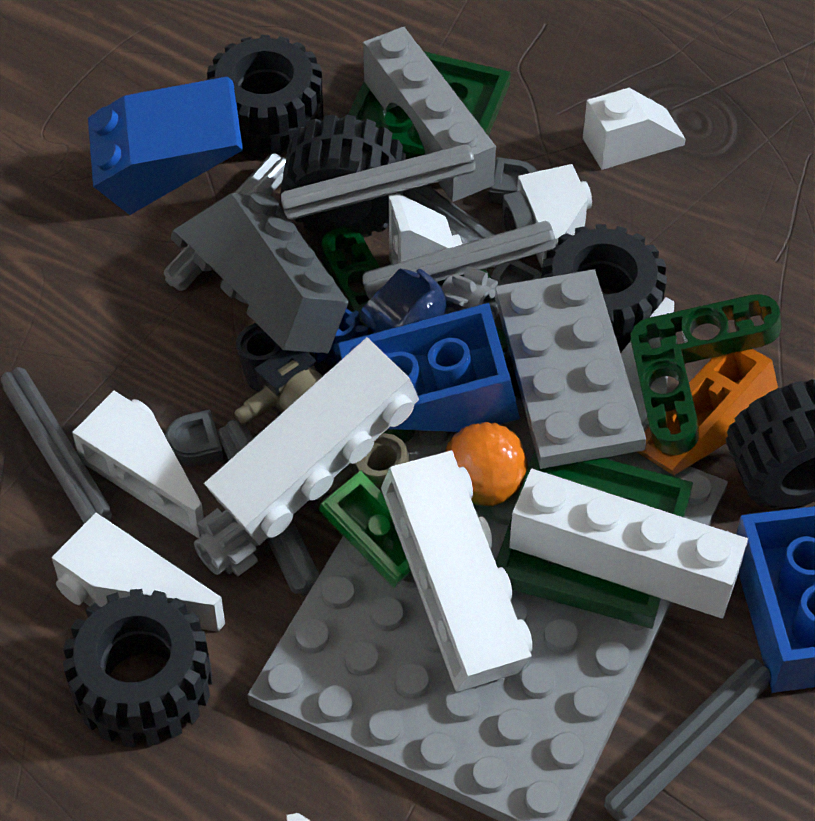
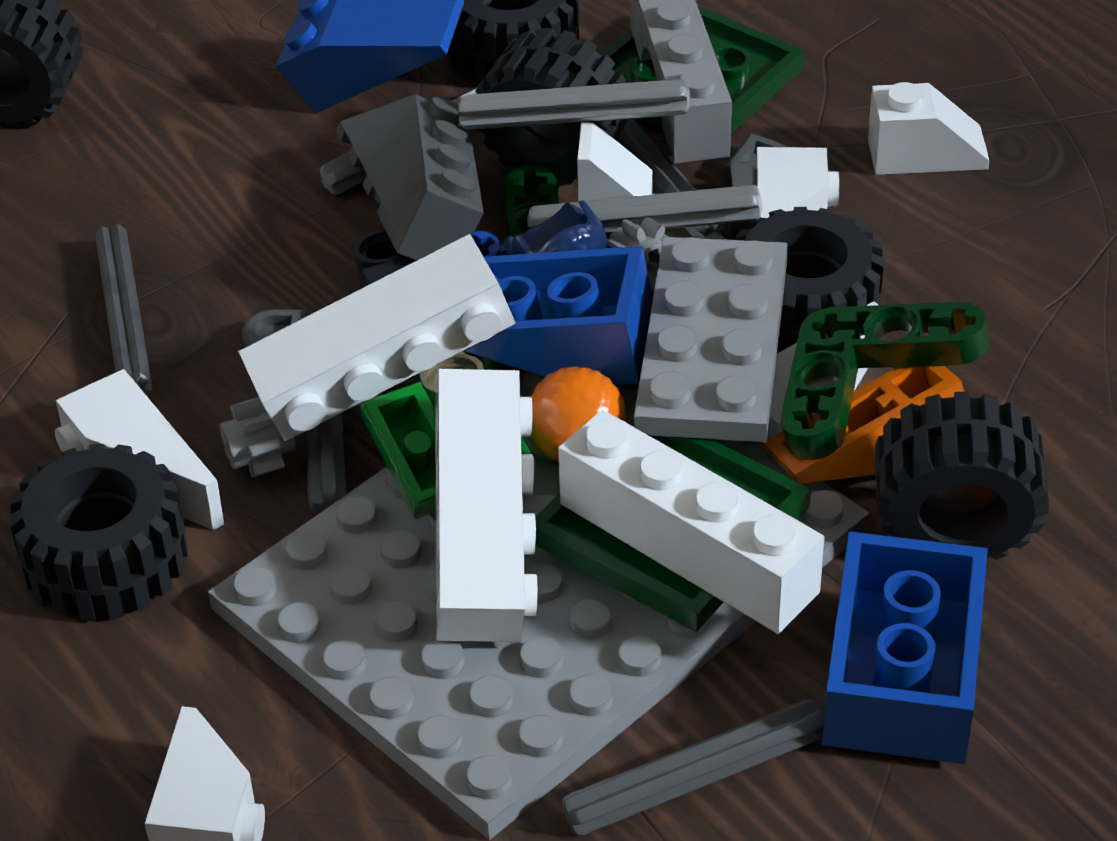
camera: 20 degrees right, 10 degrees down
(131, 451) = (196, 329): white slope -> none

